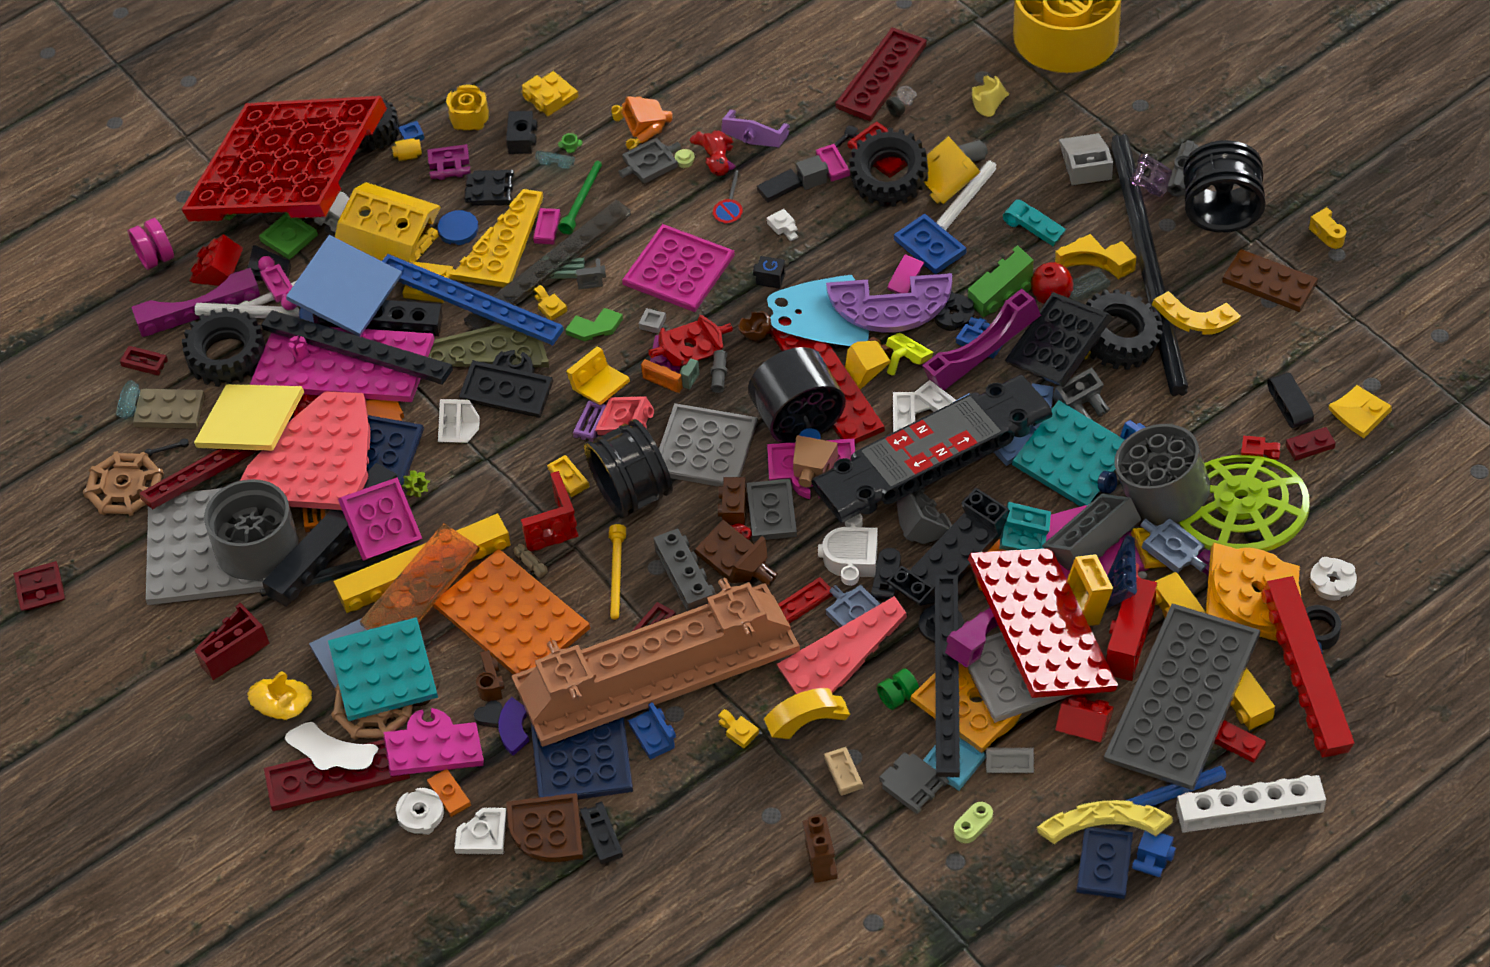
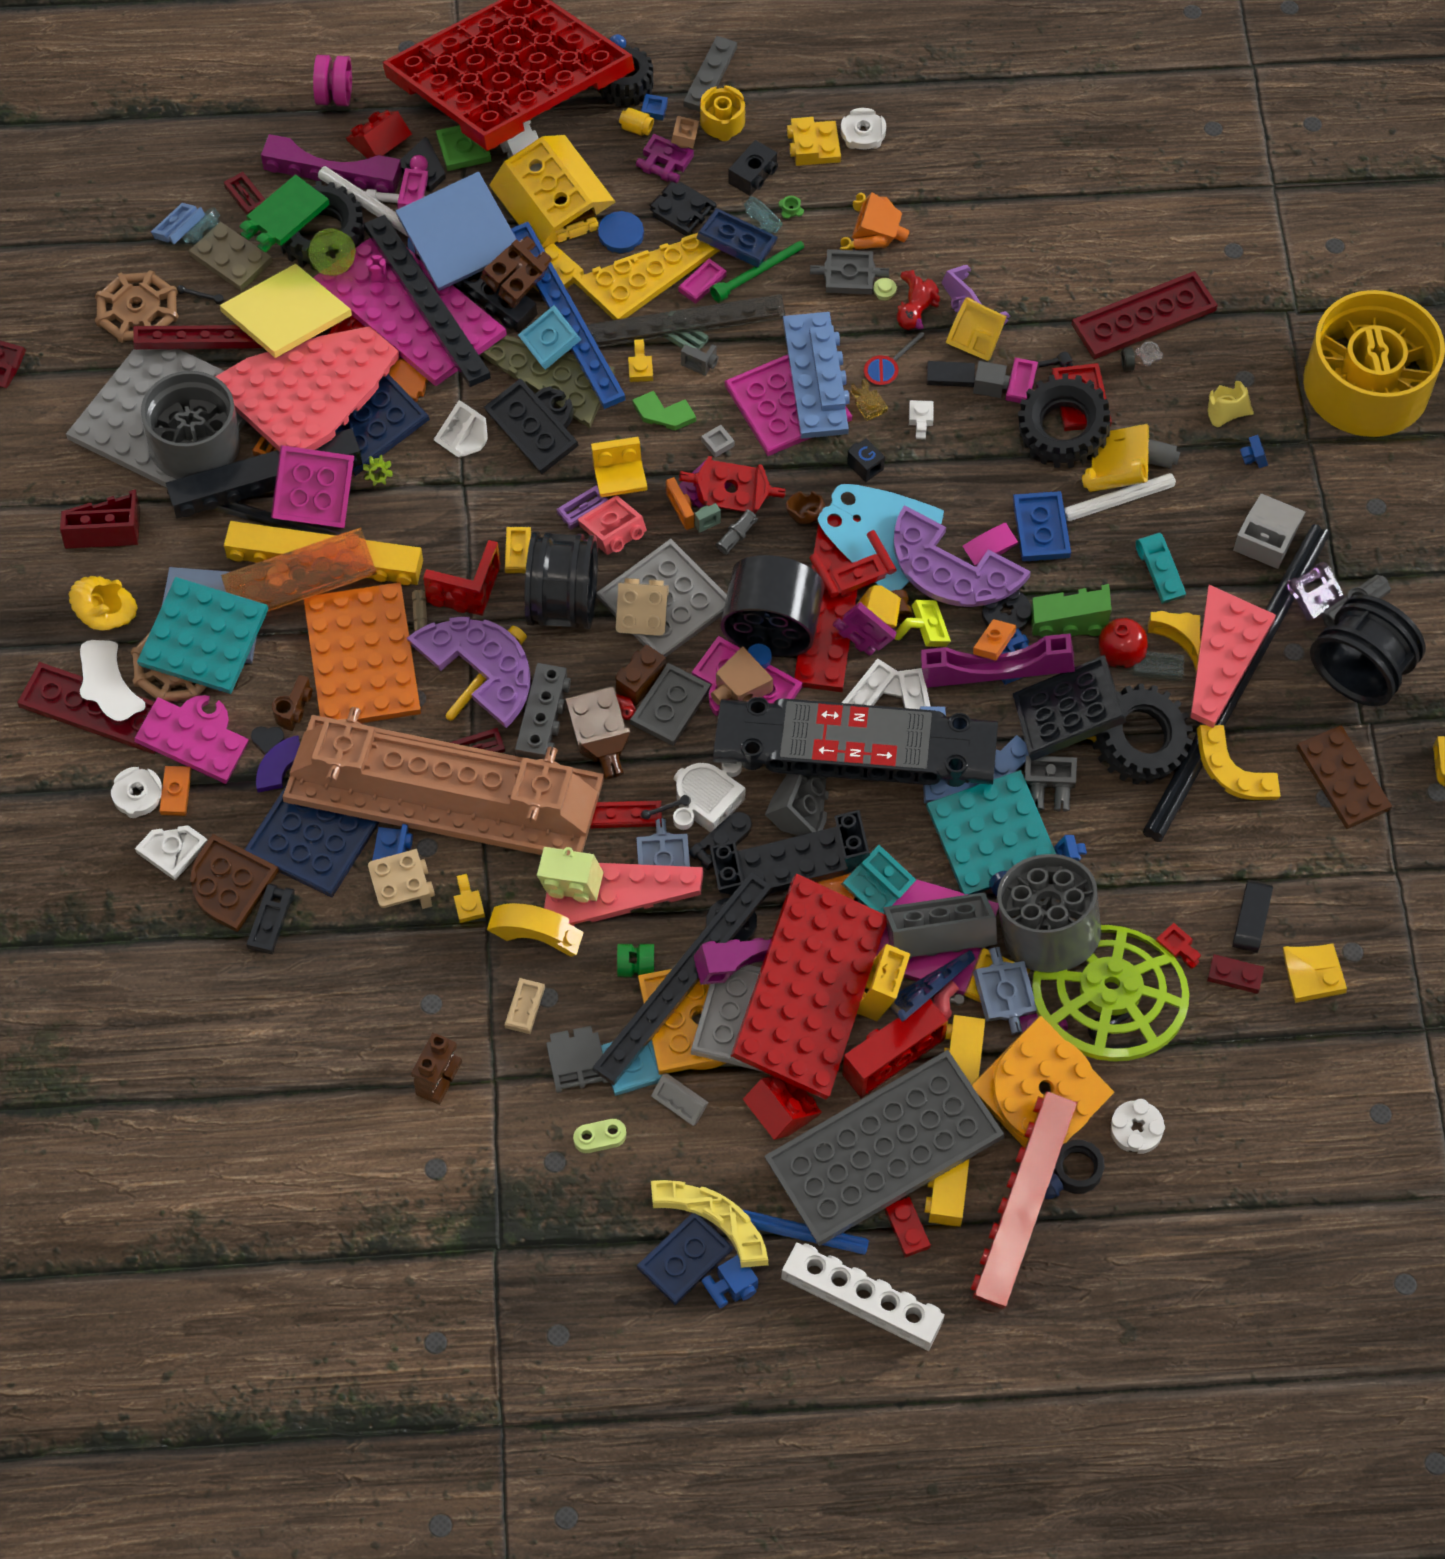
camera: 30 degrees right, 10 degrees up
(108, 407) = (178, 223): none -> medium blue plate
(194, 349) = (284, 213): none -> green tile
(254, 366) = (338, 240): none -> clear neon green plate
(415, 280) = (516, 271): none -> reddish brown hips
(433, 91) = (710, 71): none -> dark grey plate
(450, 135) = (684, 132): none -> medium nougat plate
(471, 320) = (549, 337): none -> medium azure tile
(550, 182) = (737, 237): none -> dark blue tile
(576, 74) = (860, 139): none -> white plate
(609, 551) = (490, 652): none -> medium lavender plate
(680, 741) = (401, 879): none -> tan bracket
(687, 236) = (817, 374): none -> medium blue plate
(697, 456) = (641, 607): none -> tan bracket
(737, 236) = (868, 402): none -> clear yellow plate
(775, 145) = (976, 329): none -> yellow plate
(807, 655) = (570, 875): none -> yellowish green brick
(836, 339) = (857, 573): none -> red plate
(842, 561) = (685, 800): none -> black hinge
(871, 370) = (870, 629): none -> magenta plate
(966, 330) = (994, 639): none -> orange plate
(1033, 115) = (1254, 453): none -> blue tile
(1127, 240) = (1227, 646): none -> coral wing

